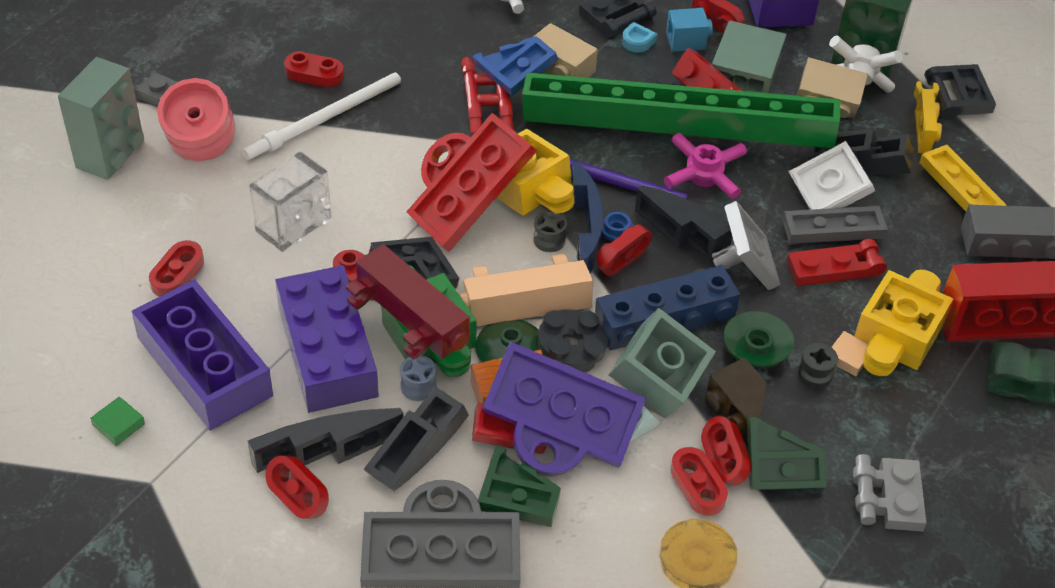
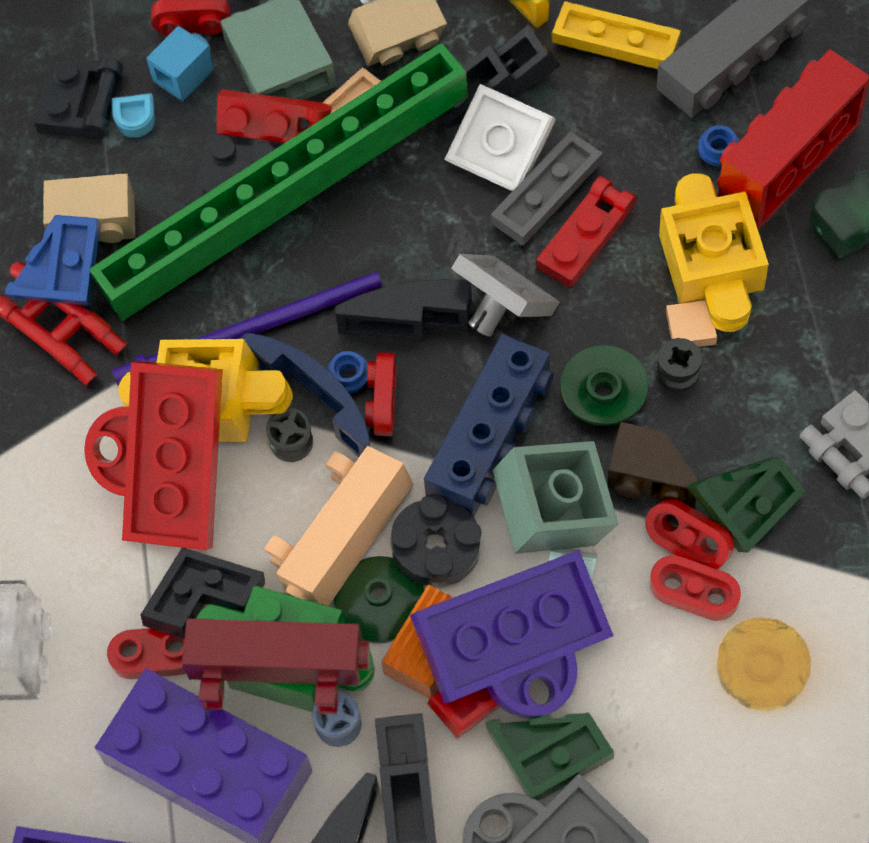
camera: 35 degrees left, 15 degrees up
(705, 166) = (363, 223): dark pink bar -> none

